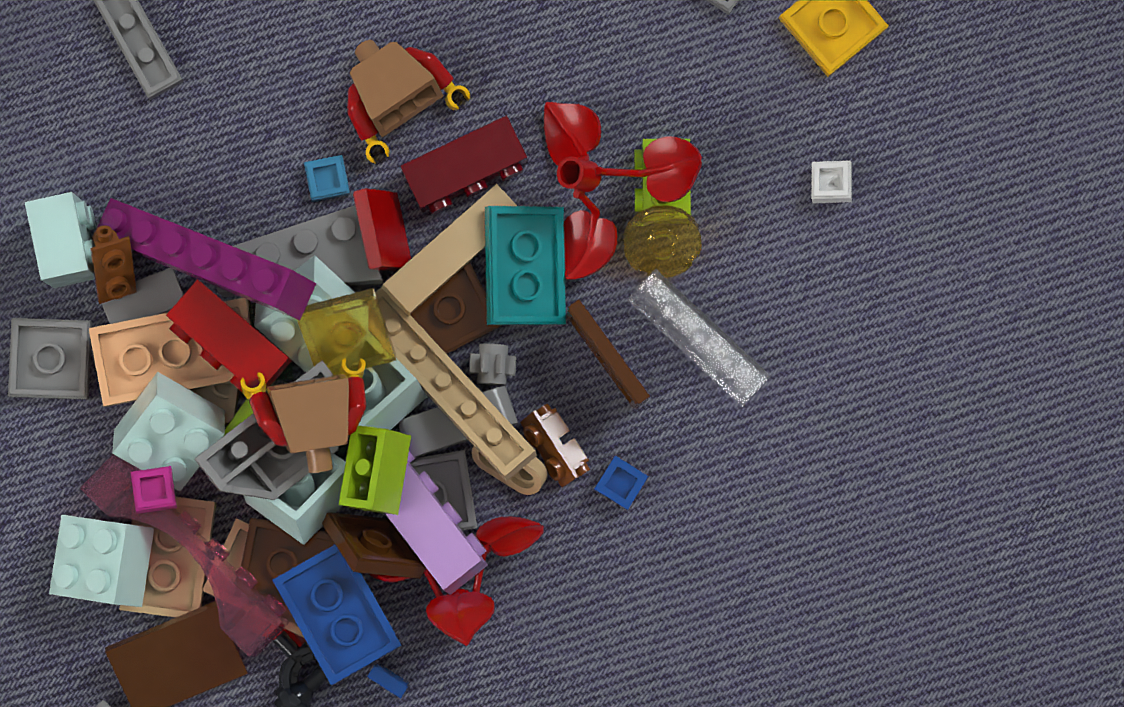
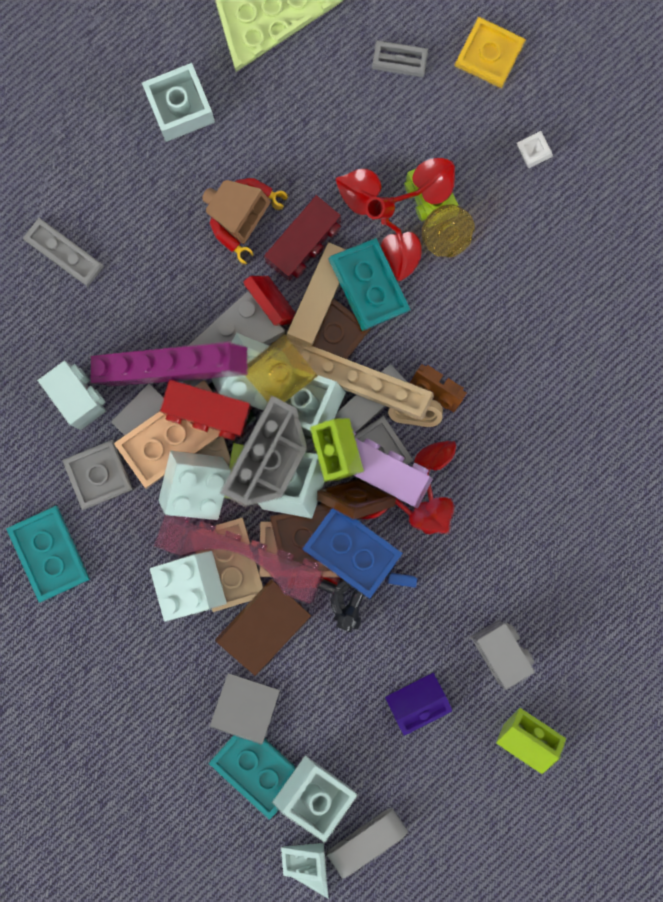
camera: 20 degrees left, 0 degrees up
(112, 265) = (111, 396): dark orange hinge -> none
(153, 489) = (201, 525): dark pink tile -> none
(311, 413) = (281, 430): medium nougat torso -> none
(327, 178) = (221, 286): dark azure tile -> none
(492, 364) = (377, 354): light grey gear -> none
(607, 354) = (447, 315): reddish brown tile -> none
(621, 482) = (490, 392): blue plate -> none
(698, 337) = (497, 281): clear plate -> none

